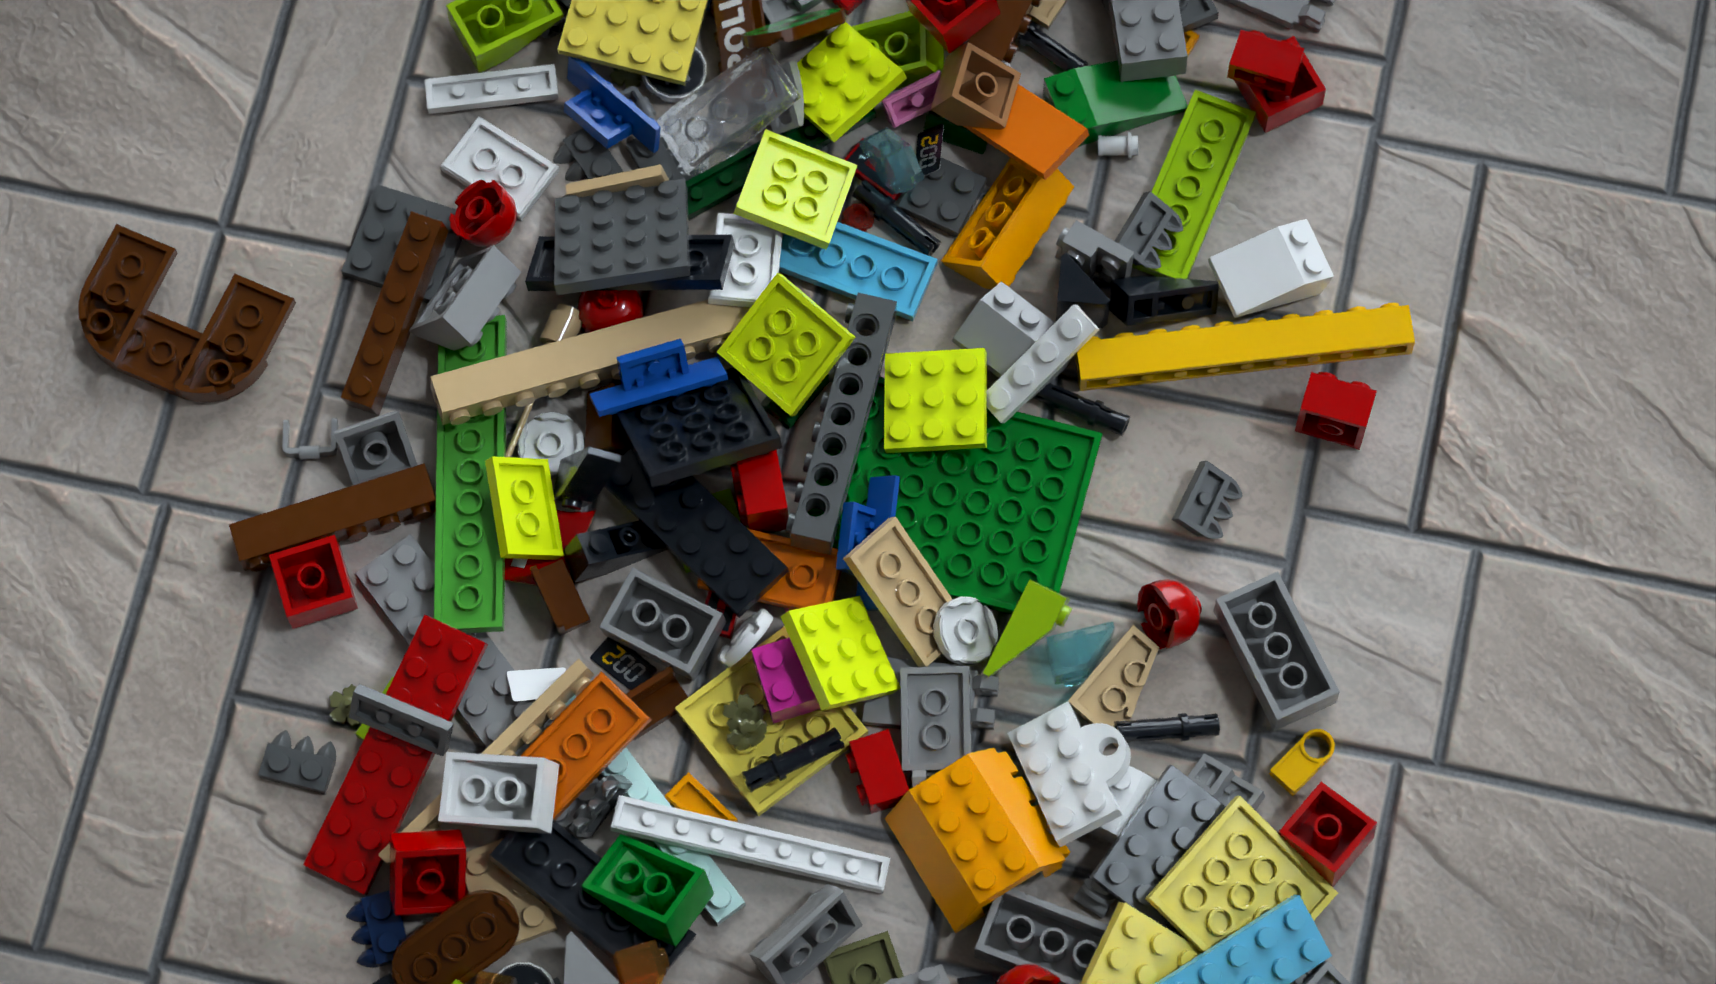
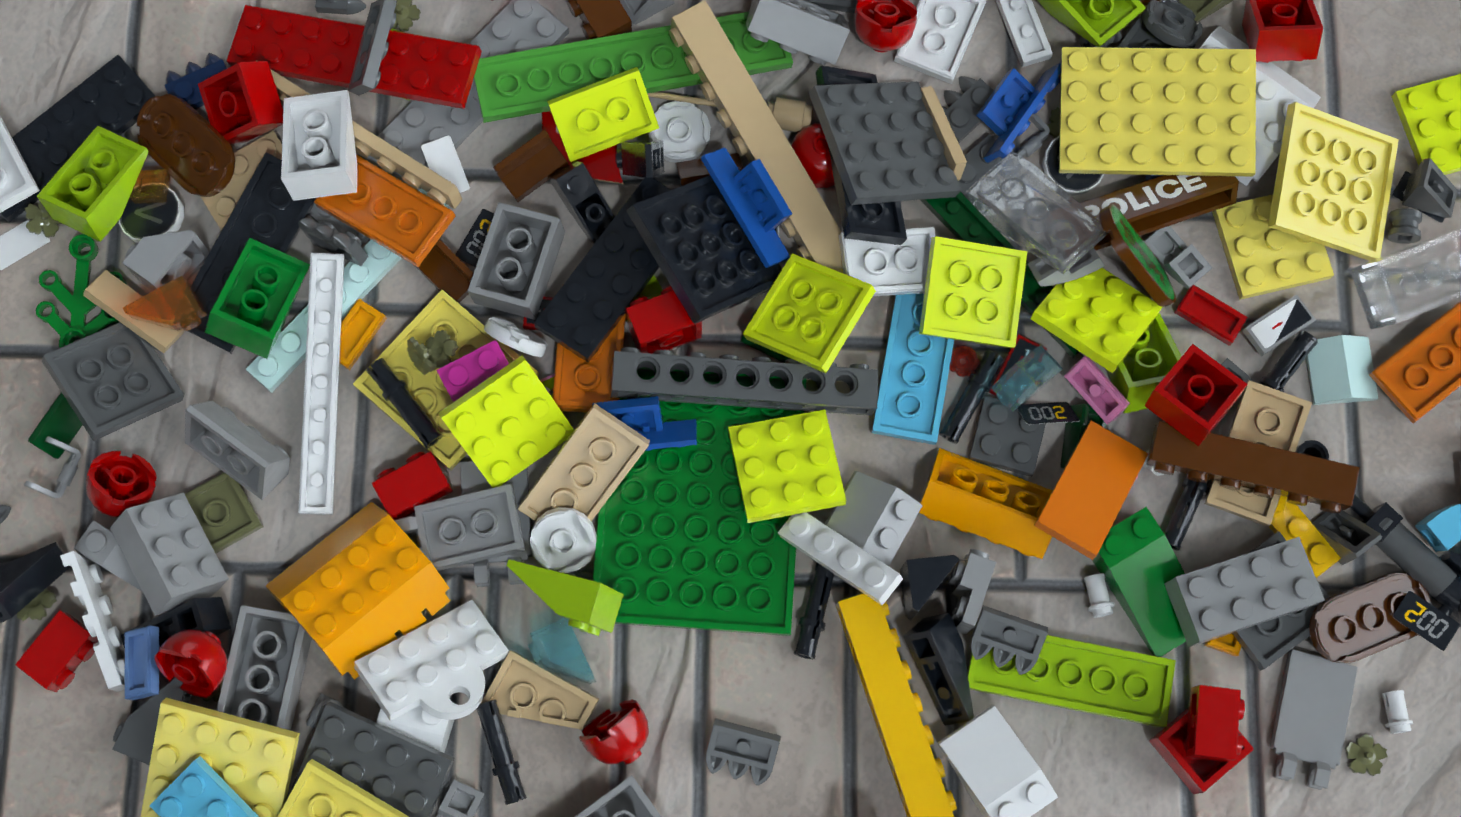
camera: 70 degrees right, 5 degrees up
(975, 89) = (1115, 441): medium nougat slope -> none

